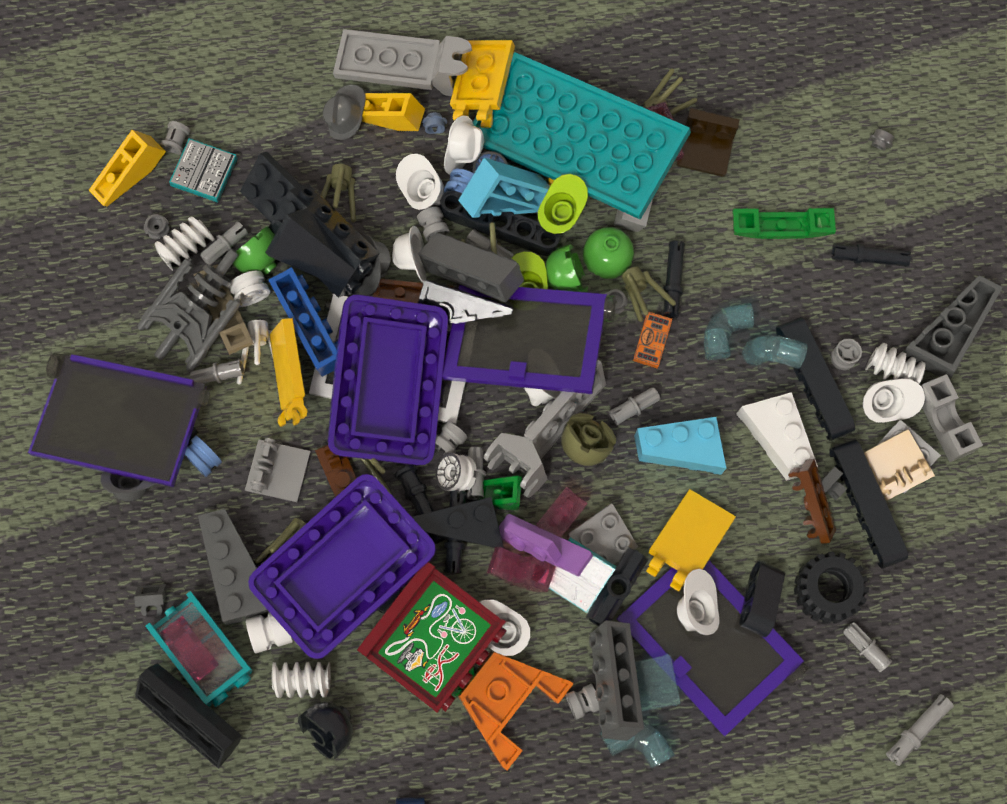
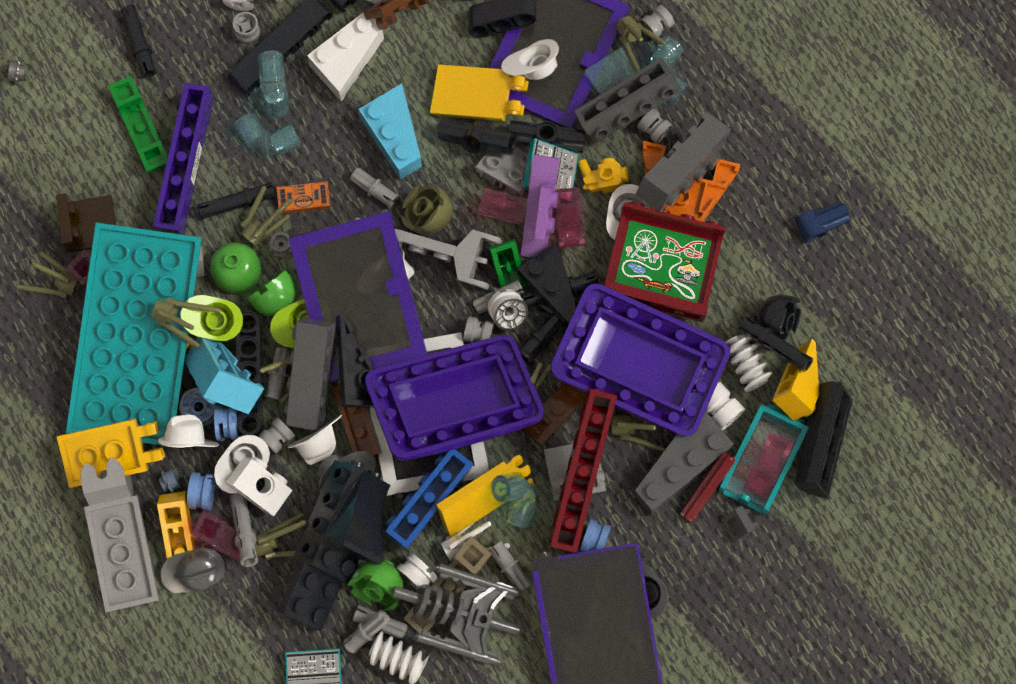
camera: 105 degrees left, 0 degrees up
(198, 581) = (707, 487): none -> dark red axle
(218, 225) = (366, 631): none -> light grey axle
(252, 716) = (799, 389): none -> yellow slope
(263, 464) = (582, 469): none -> dark red brick
(270, 400) = (521, 498): none -> clear light blue cylinder
(307, 701) = (766, 338): none -> black pin
(348, 156) = (245, 538): none -> light grey pin
(368, 137) = (216, 535): none -> clear pink brick
(377, 190) = (245, 479): none -> white brick
(410, 140) = (200, 491): none -> medium blue wheel
(522, 702) = (684, 163): none -> dark grey wedge
(549, 626) = (607, 177): none -> yellow piece
(579, 161) = (167, 315): none -> olive plant
(643, 519) = (476, 136): none -> black piece
(693, 721) = (631, 31): none -> olive plant
(694, 755) = (658, 20): none -> light grey wheel
(730, 244) = (183, 159): none -> dark purple brick

